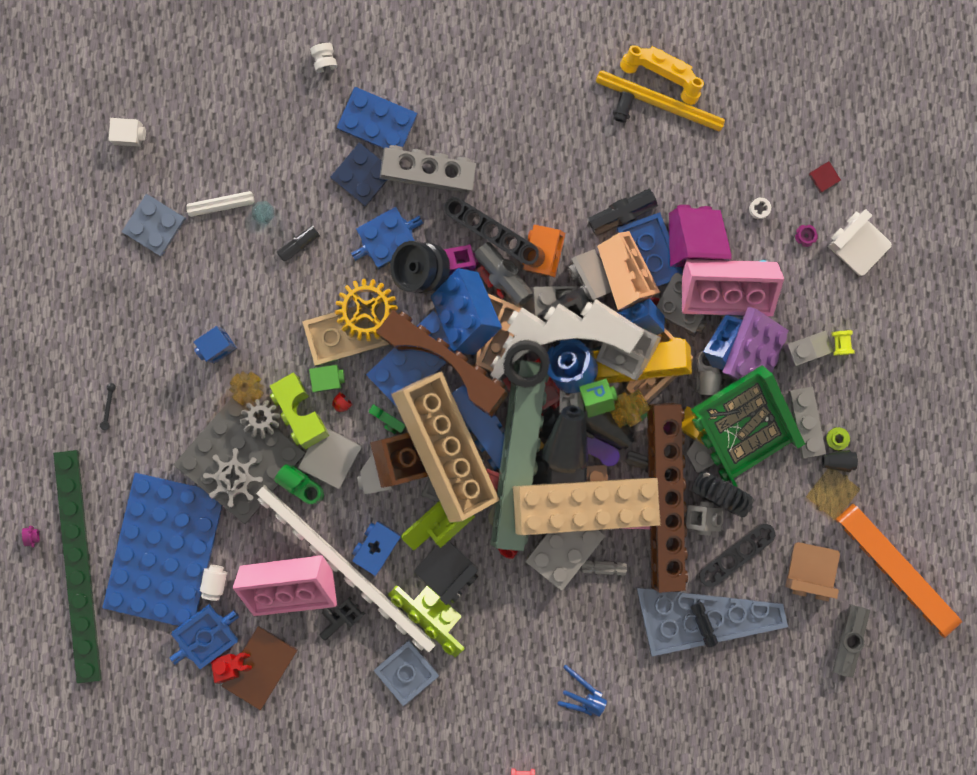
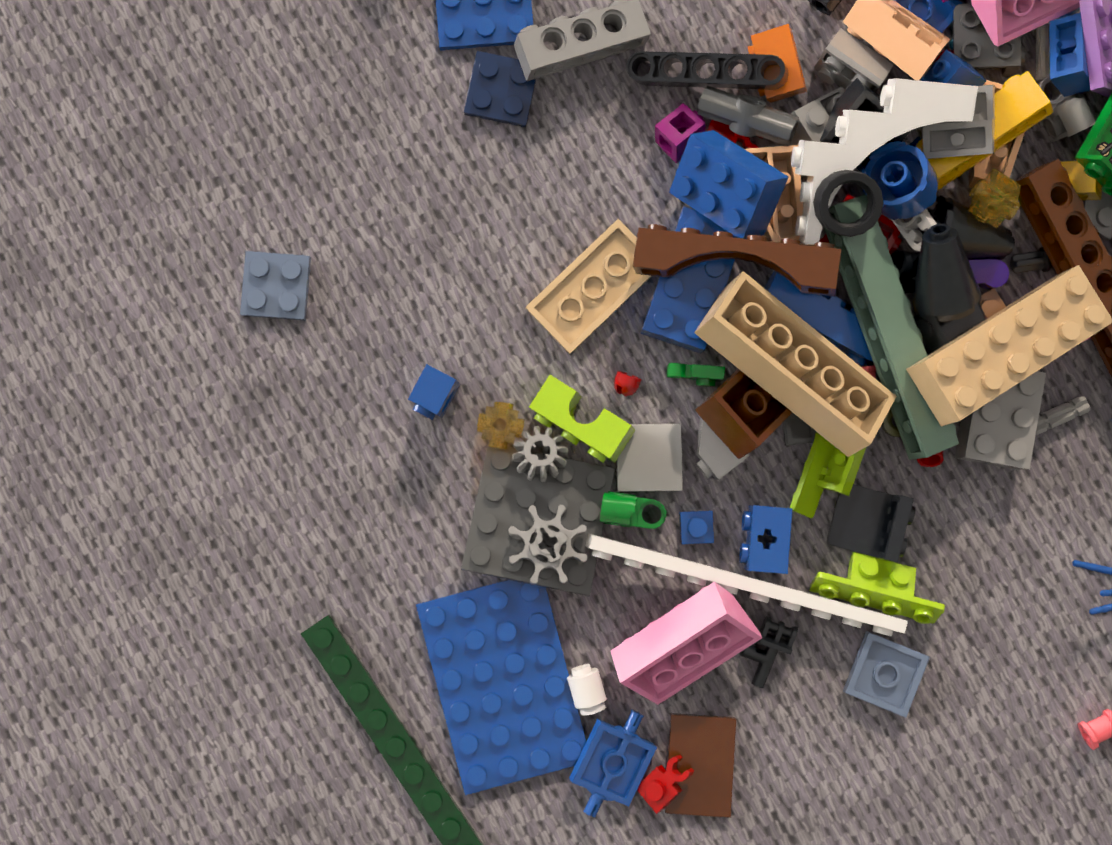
camera: 30 degrees left, 0 degrees up
(30, 536) = (327, 753): magenta plate -> none
(105, 425) = (346, 565): black hinge -> none
(126, 132) = (181, 187): white brick -> none
(220, 204) = (344, 216): white axle -> none
(263, 212) = (403, 199): clear light blue tile -> none
(298, 243) = (468, 214): black axle -> none
(326, 378) = (593, 361): bright green brick -> none
(337, 517) = (696, 527): none -> blue plate
(357, 317) = (585, 244): yellow gear -> none
(384, 235) = (574, 151): blue plate -> none
(419, 267) = (638, 161): black wheel -> none
(598, 397) = (955, 201): bright green brick -> none

